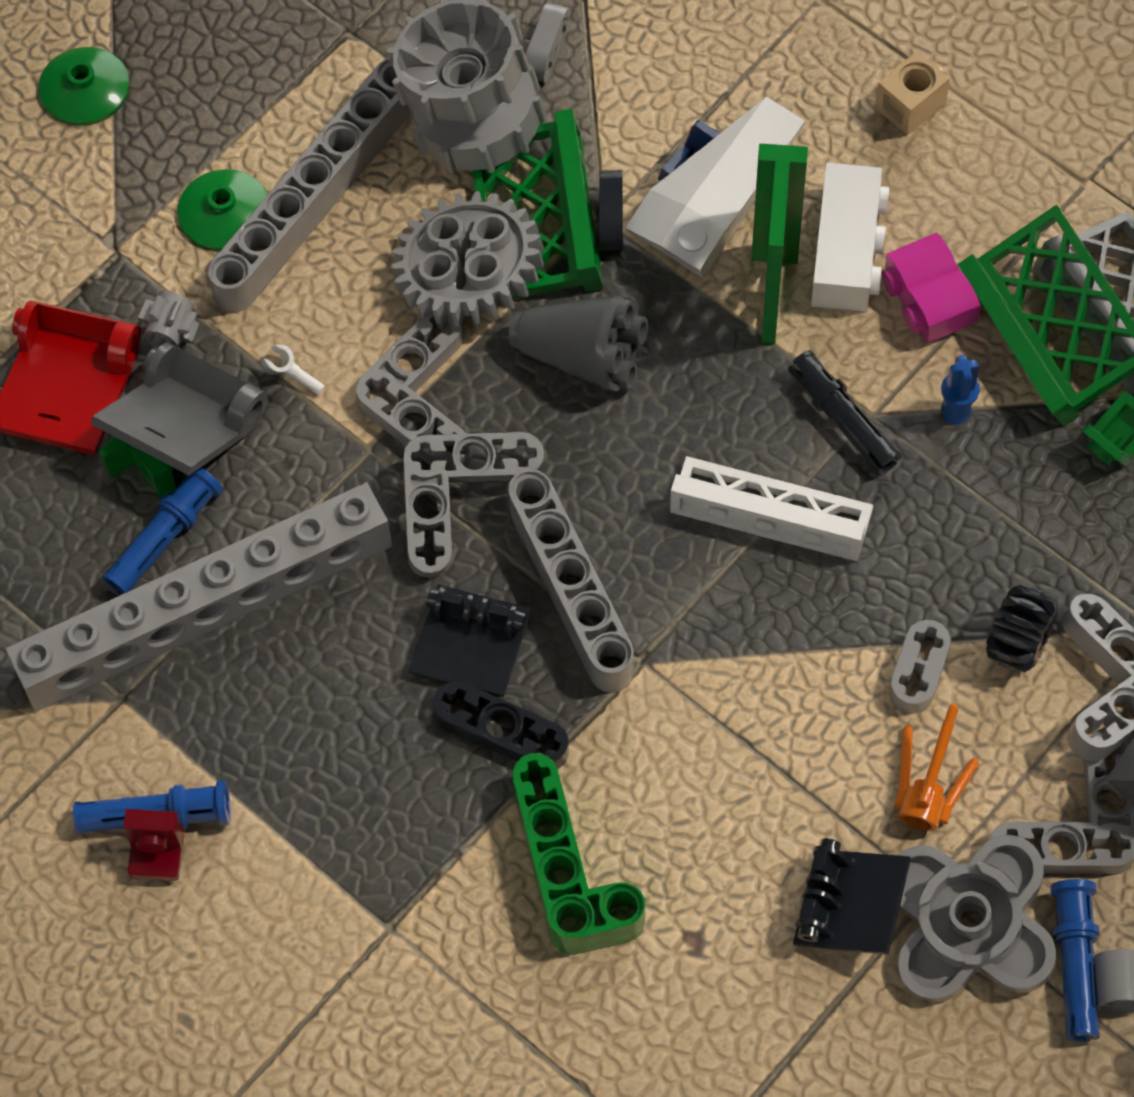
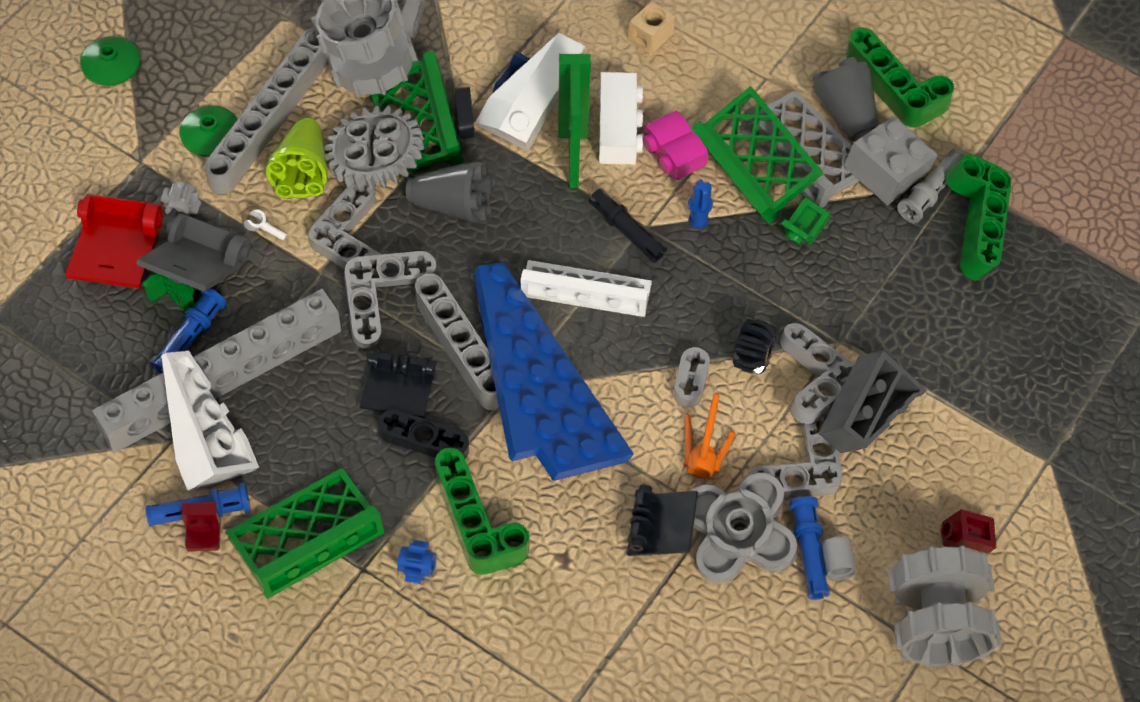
camera: 10 degrees left, 5 degrees down
(167, 699) = (203, 437): none -> white wedge
(318, 900) = (317, 548): none -> green fence
(352, 271) = (299, 162): none -> lime cone
(471, 928) = (416, 561): none -> blue gear
(683, 672) = (538, 390): none -> blue wing

